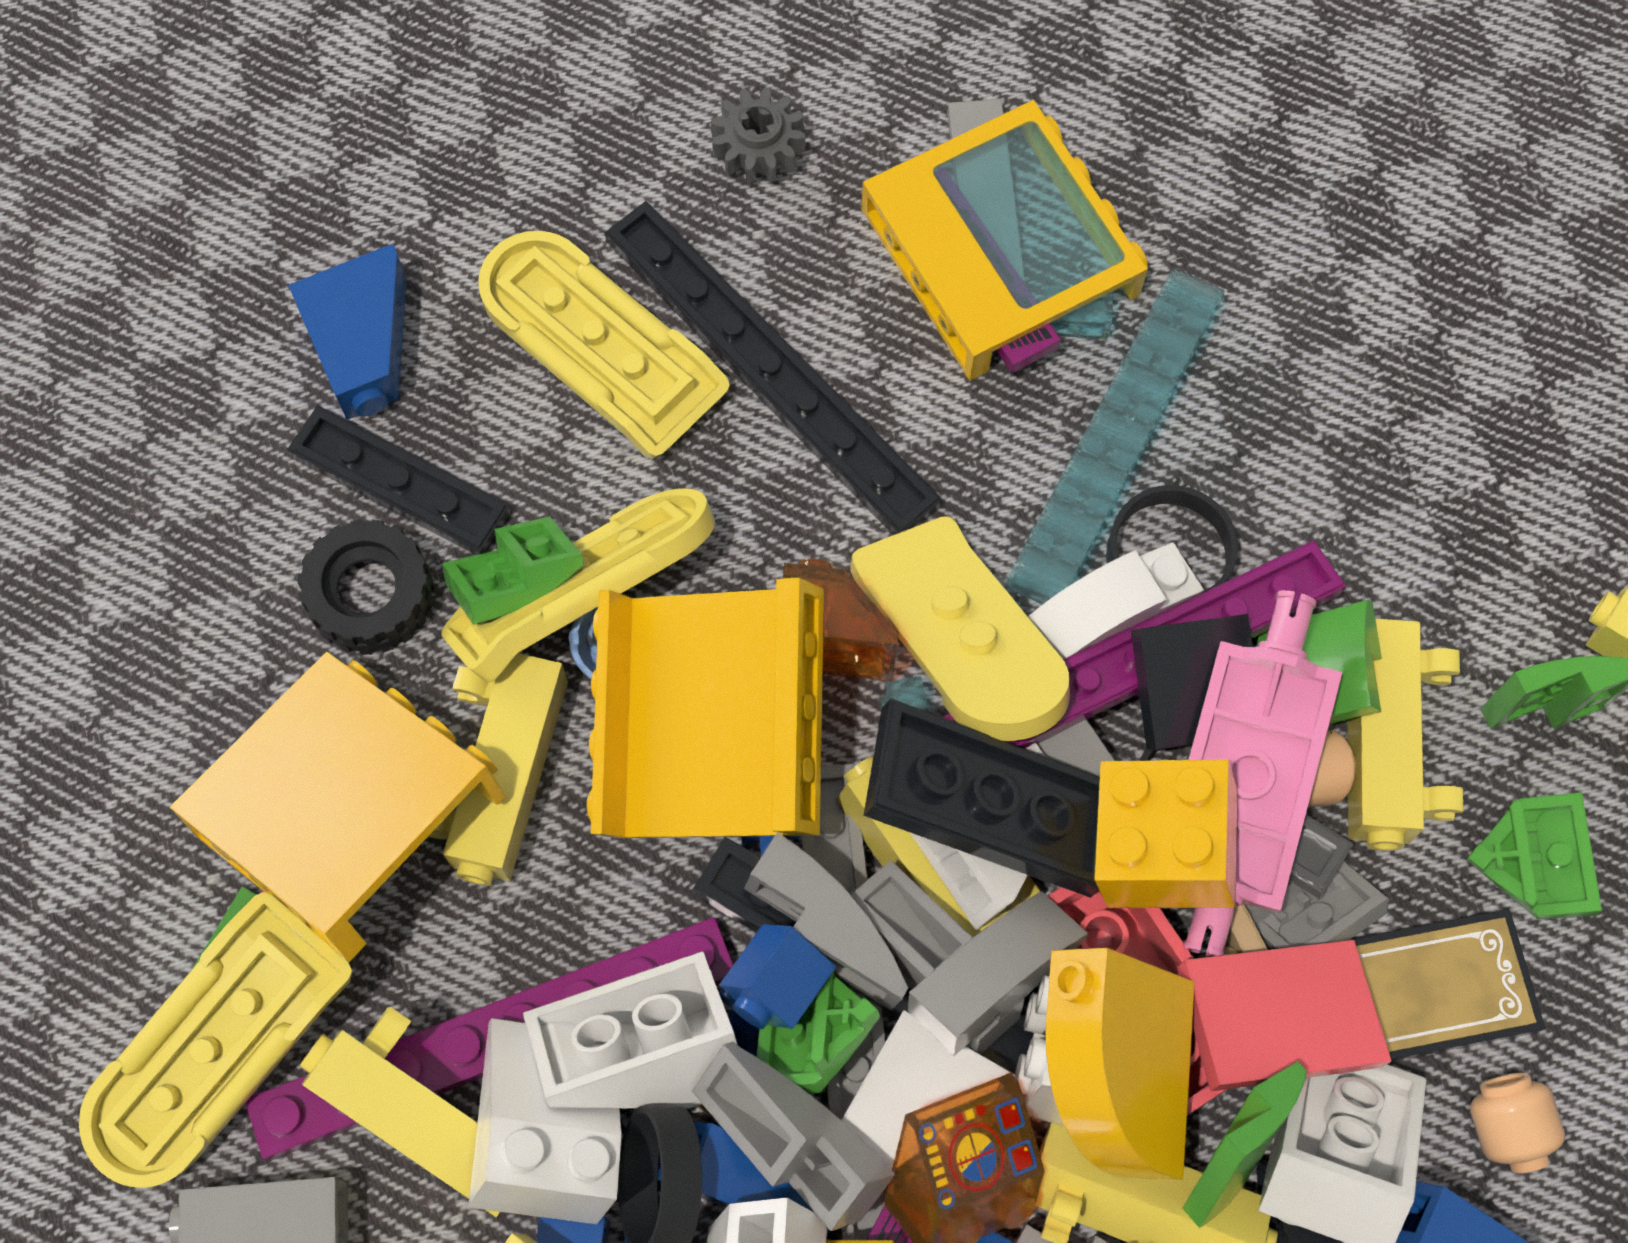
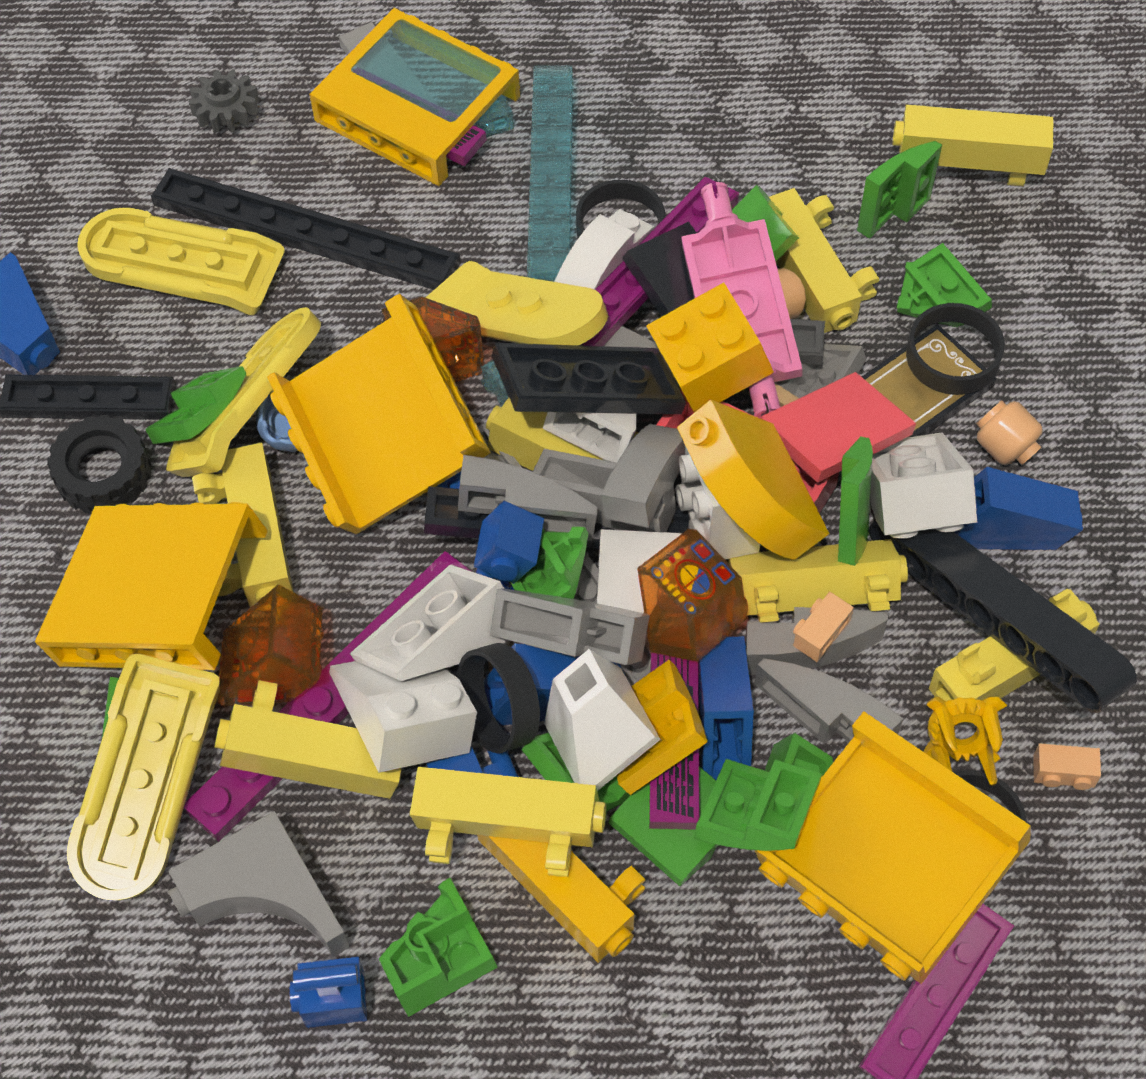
camera: 25 degrees left, 10 degrees down
(438, 954) = (273, 644): none -> clear orange slope
(1558, 927) = (962, 314): none -> black tyre

